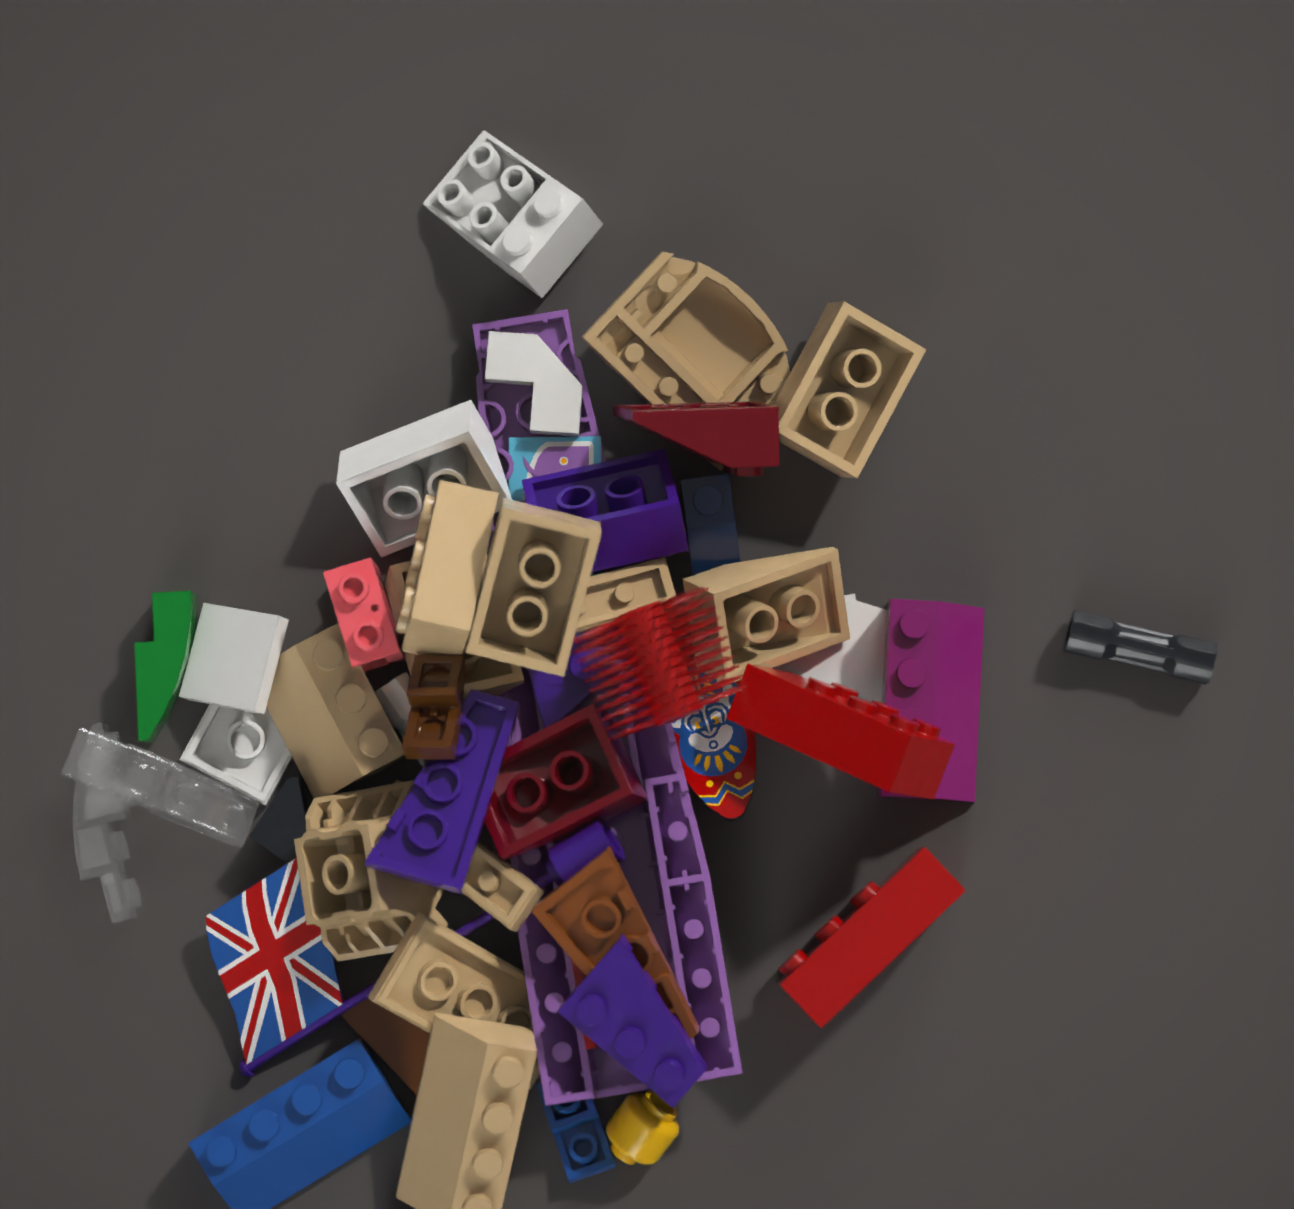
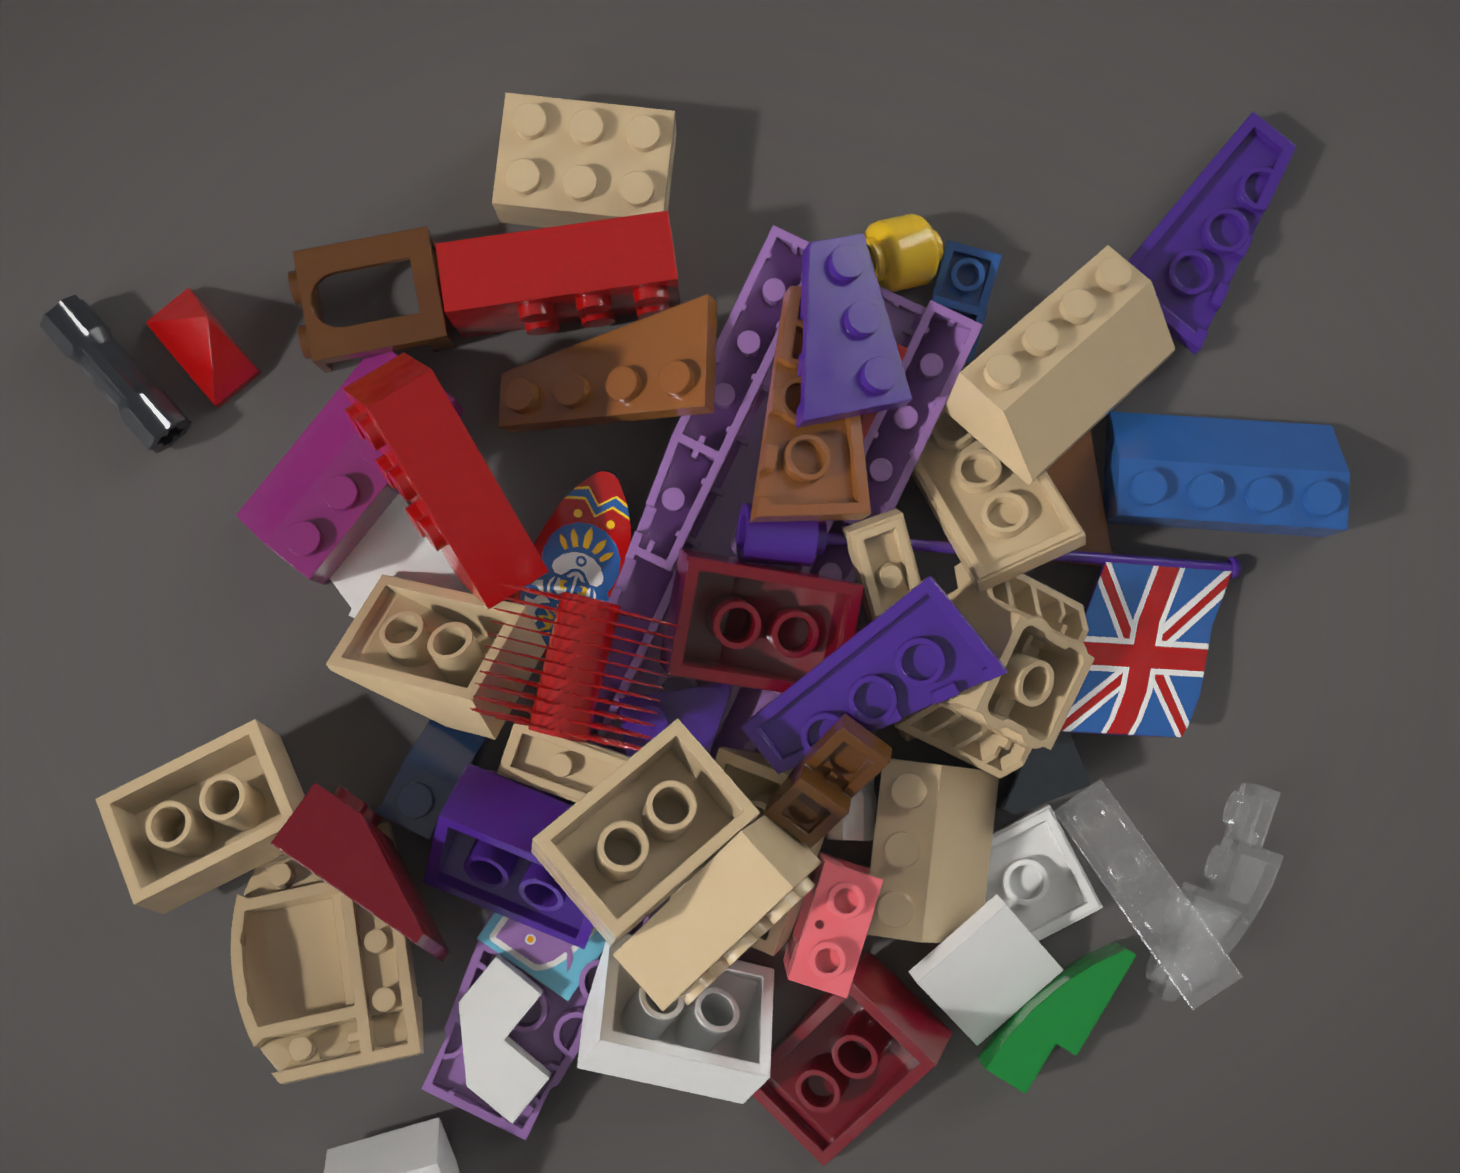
camera: 145 degrees left, 0 degrees up
(287, 532) = (851, 1060): none -> dark red slope
(774, 896) = (628, 374): none -> dark orange wing
(913, 1032) = (581, 161): none -> tan brick
(997, 775) = (335, 344): none -> reddish brown panel
(1096, 710) = (203, 347): none -> red slope

